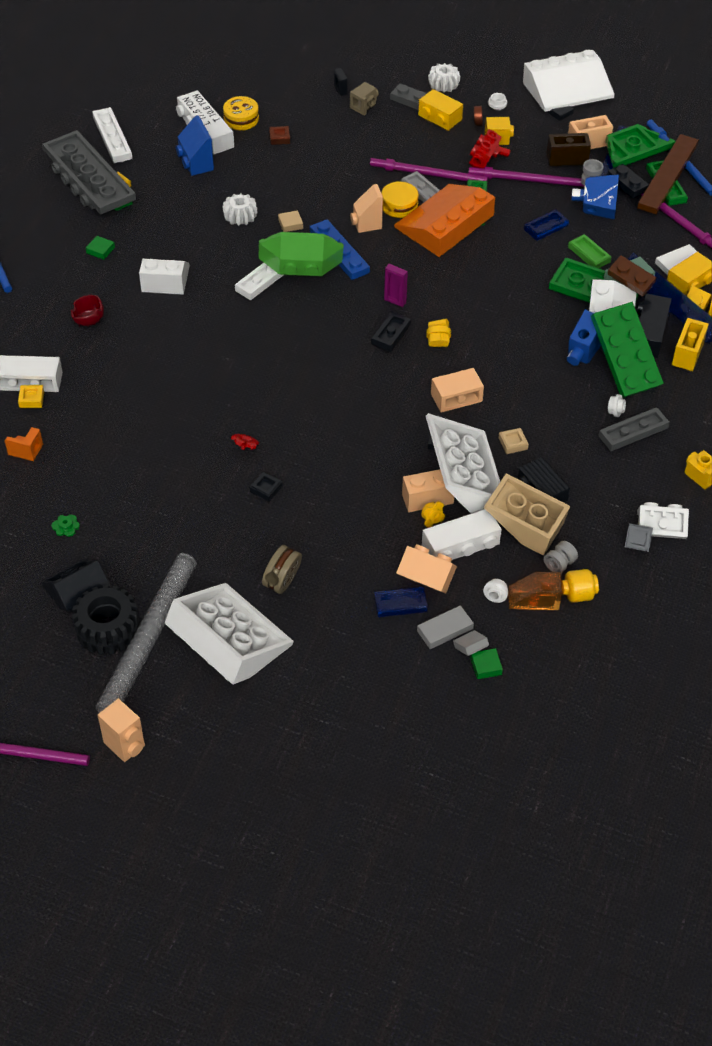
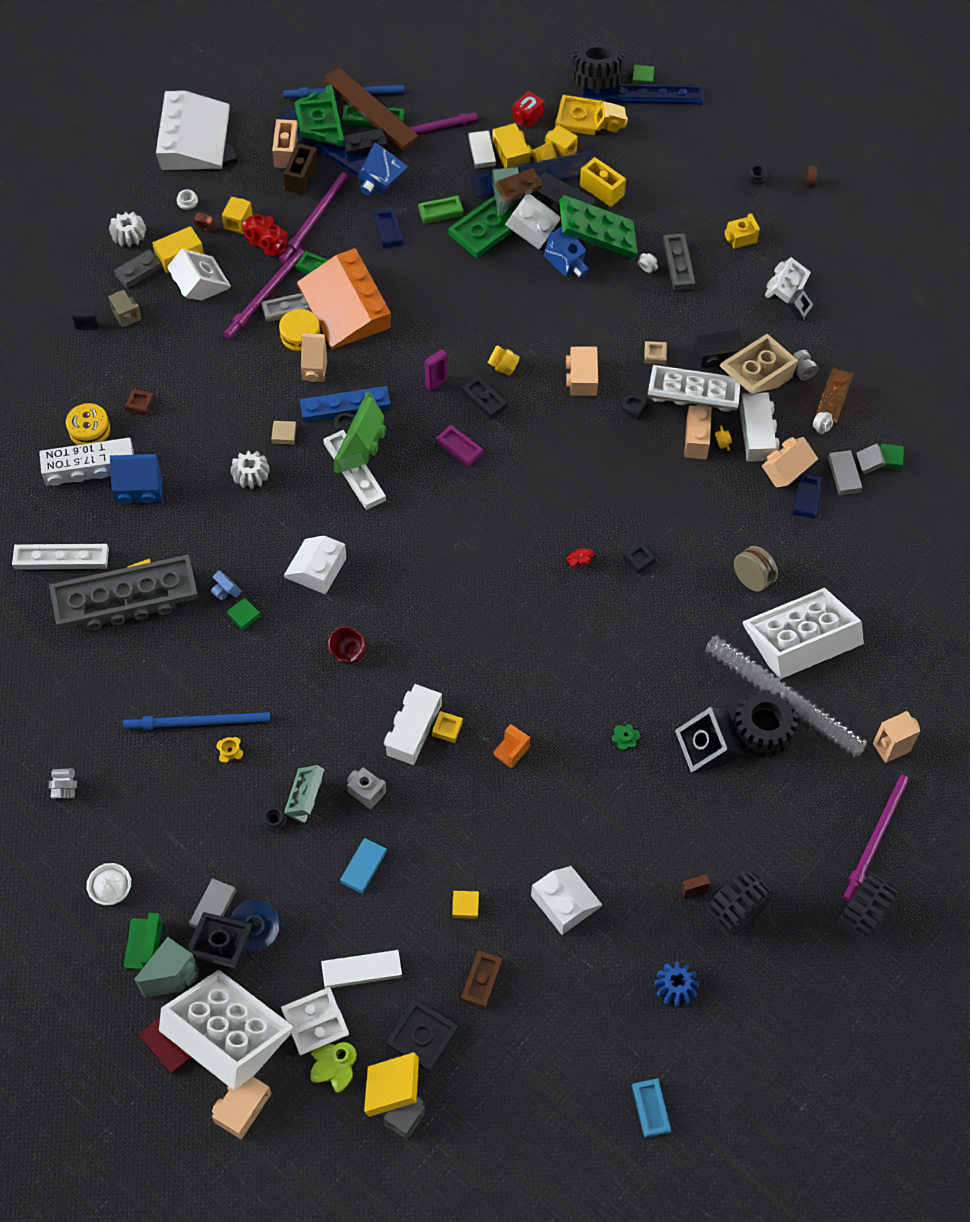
camera: 70 degrees left, 10 degrees up
(120, 227) = (224, 586): none -> medium blue tile
(332, 332) = (459, 445): none -> magenta tile
(421, 127) = (197, 275): none -> white slope
(580, 585) = (838, 358): yellow head -> none
(591, 168) = (347, 163): light grey wheel -> none

